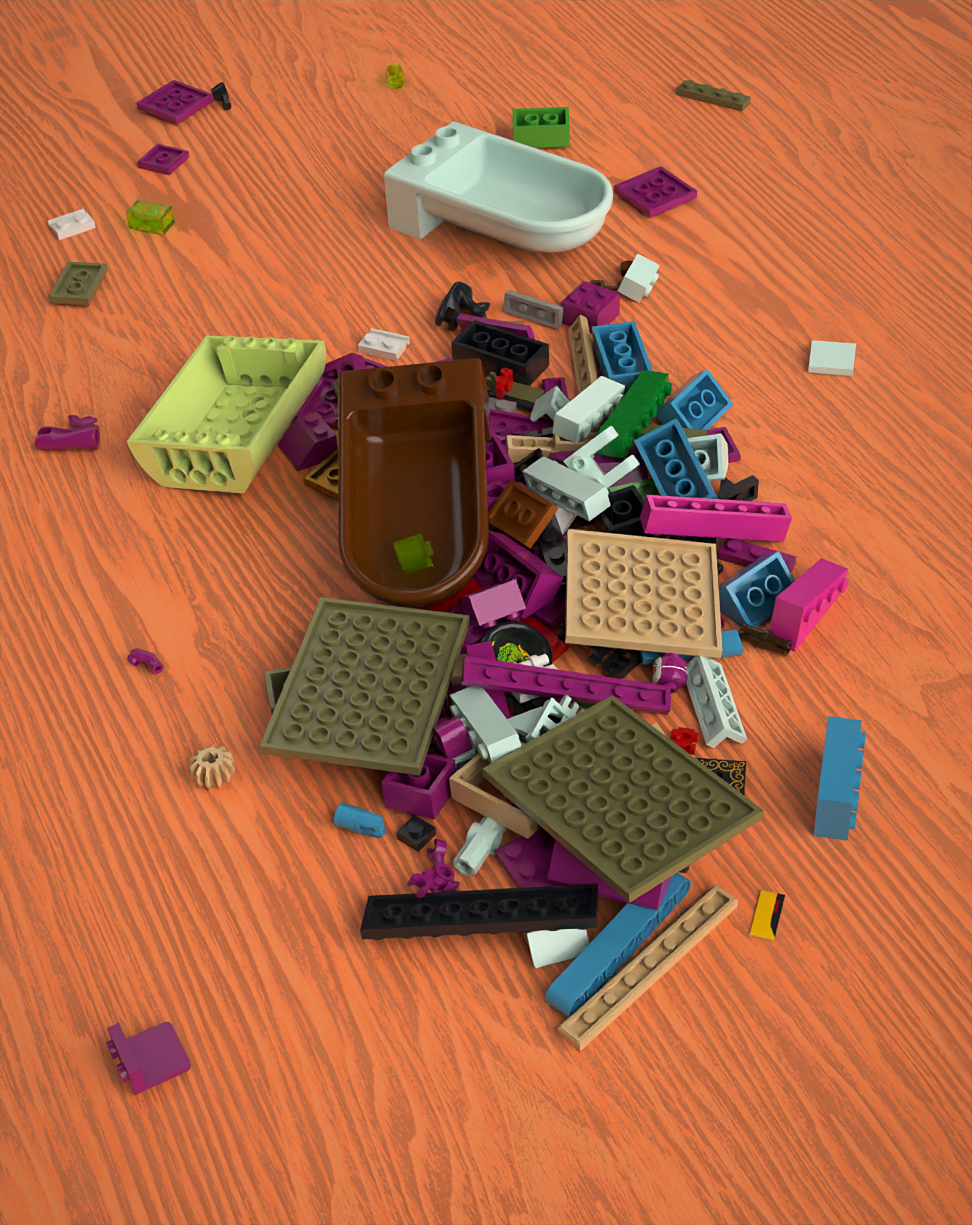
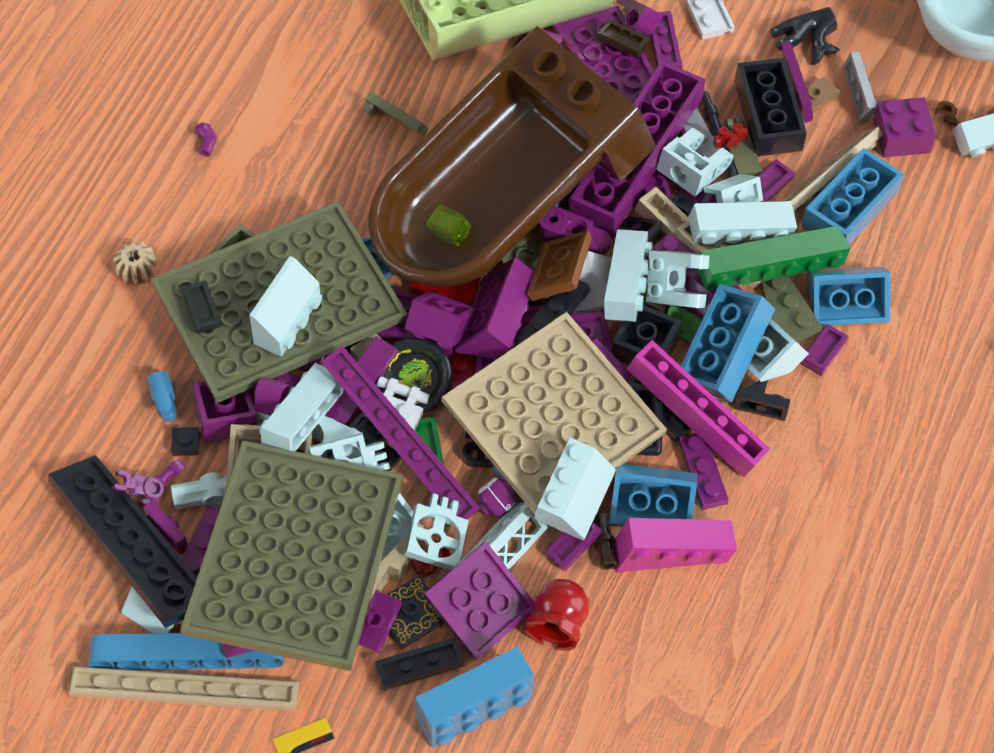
camera: 45 degrees right, 15 degrees up
(264, 539) = (375, 103): none -> olive hinge
(325, 727) = (201, 307): none -> pearl dark grey tile
(393, 672) = (285, 308): none -> light aqua slope
(488, 881) = (167, 527): none -> magenta plate
(517, 405) = (689, 168): none -> light aqua brick
(656, 704) = (441, 515): none -> light aqua piece
(717, 615) = (575, 489): none -> light aqua slope
(751, 654) = (568, 549): none -> magenta tile
(754, 728) = (479, 600): none -> magenta plate
(772, 799) = (419, 663): none -> black plate
(811, 691) = (558, 614): none -> red tile

